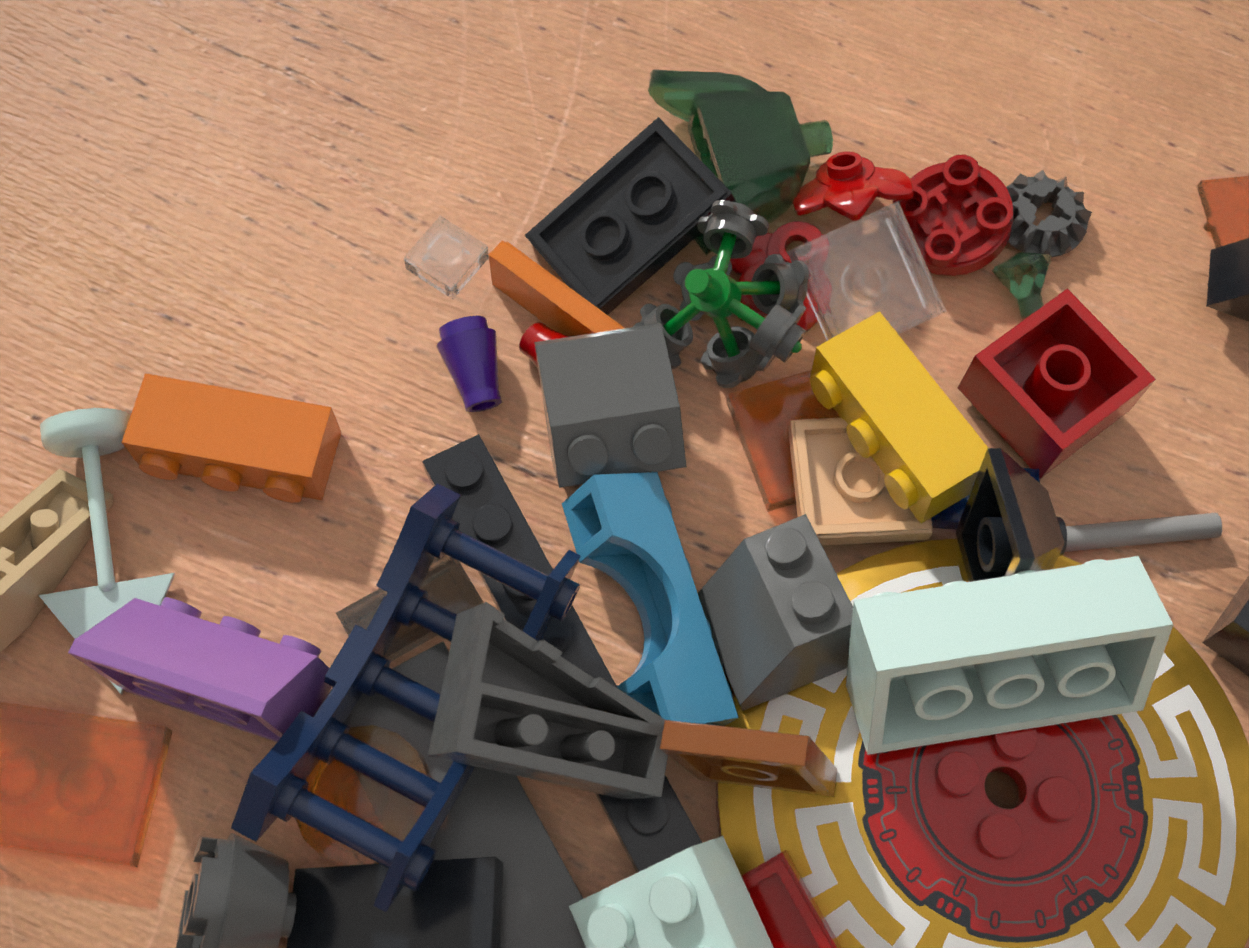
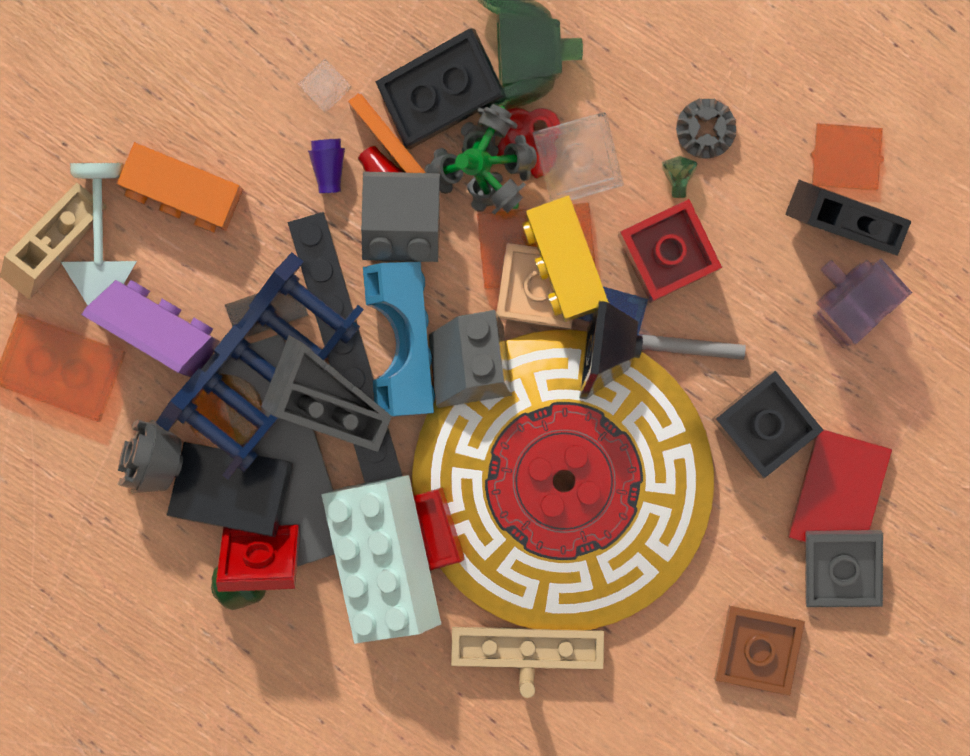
camera: 15 degrees right, 20 degrees up
(750, 757) = (429, 440): dark orange tile -> none
(850, 186) = (583, 95): red plate -> none
(958, 215) = (646, 122): red tile -> none
(1004, 653) = (572, 416): light aqua brick -> none

